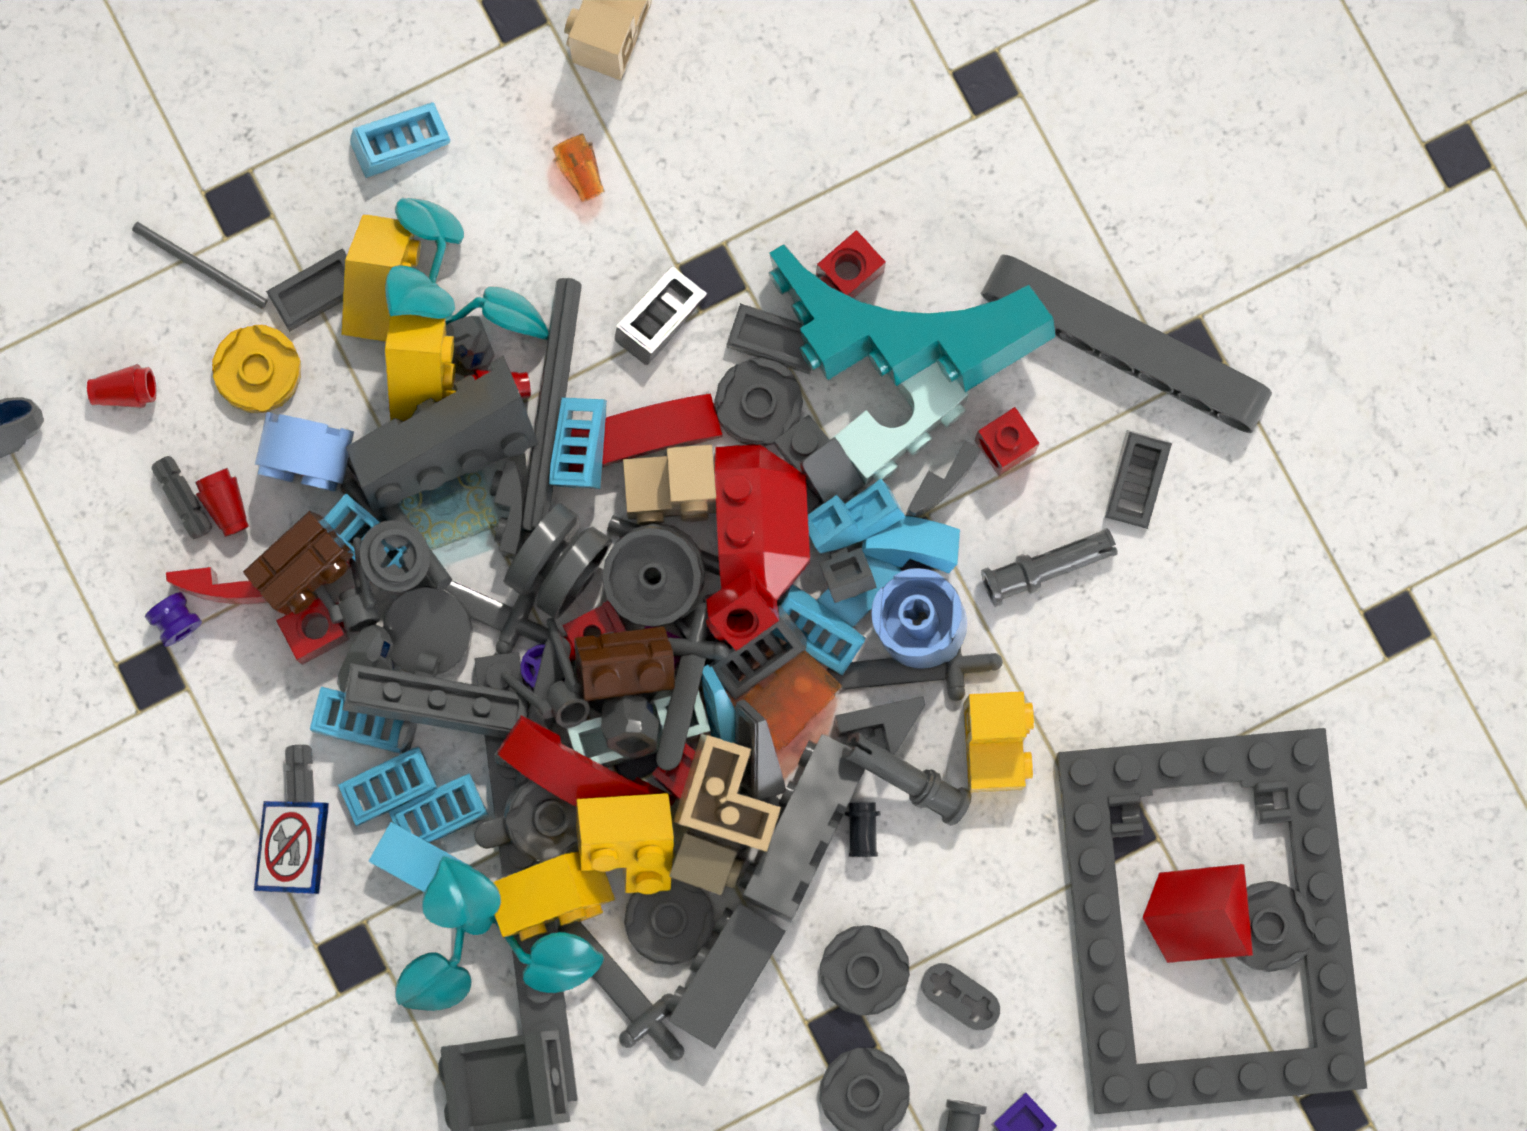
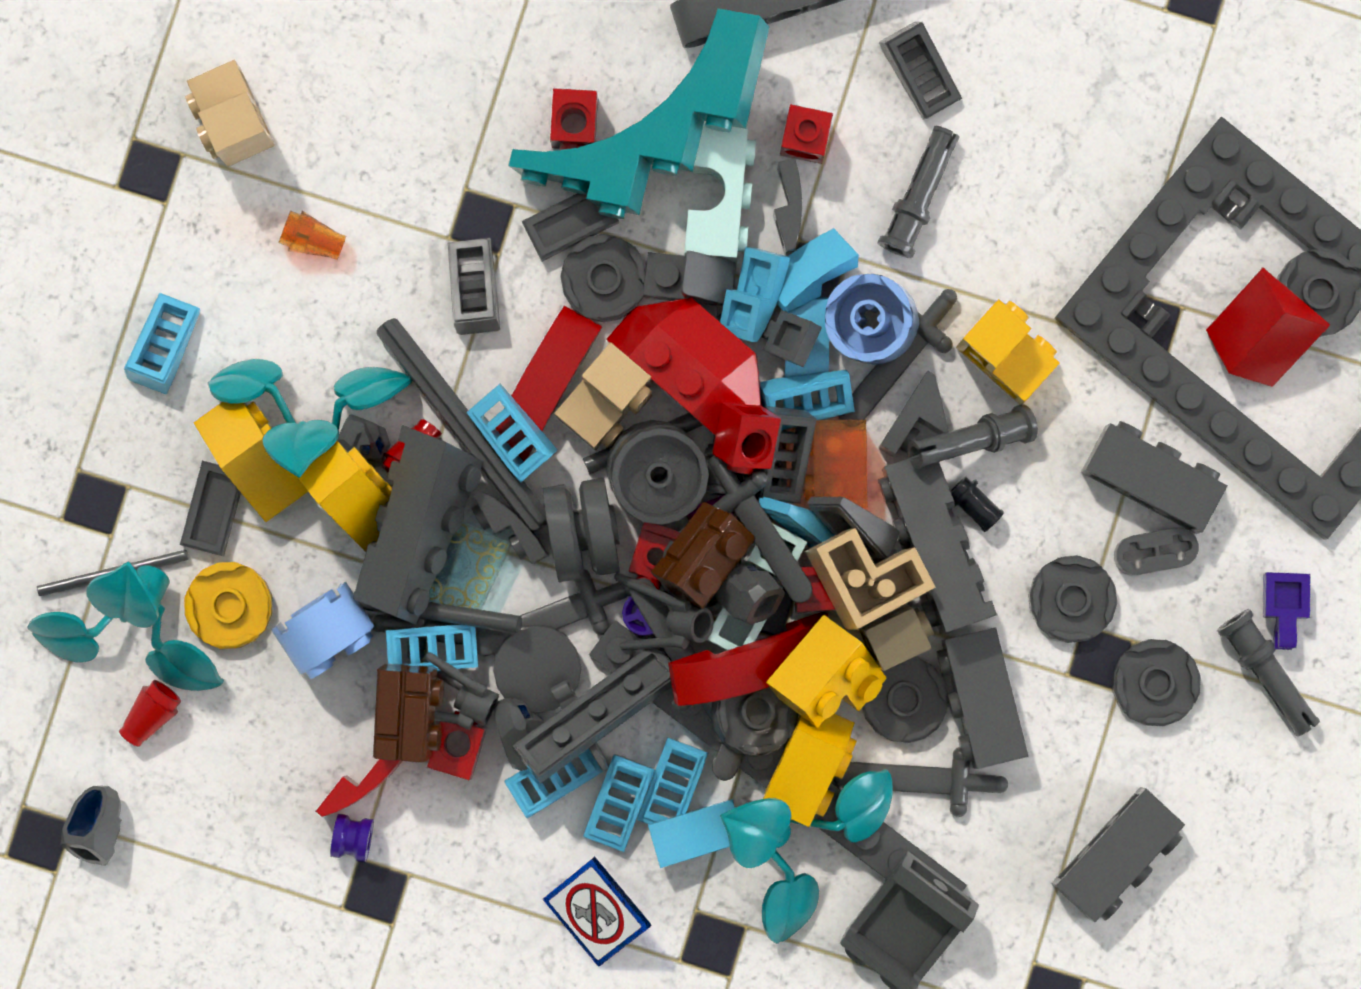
camera: 40 degrees left, 5 degrees up
(181, 497) = (269, 747): dark grey axle -> none
(184, 284) = (136, 600): none -> teal plant
(223, 501) = (302, 721): red cone -> none
(299, 779) = (552, 859): dark grey axle -> none
(413, 561) = (481, 630): dark grey gear -> none
(1013, 940) = (1155, 476): none -> dark grey brick

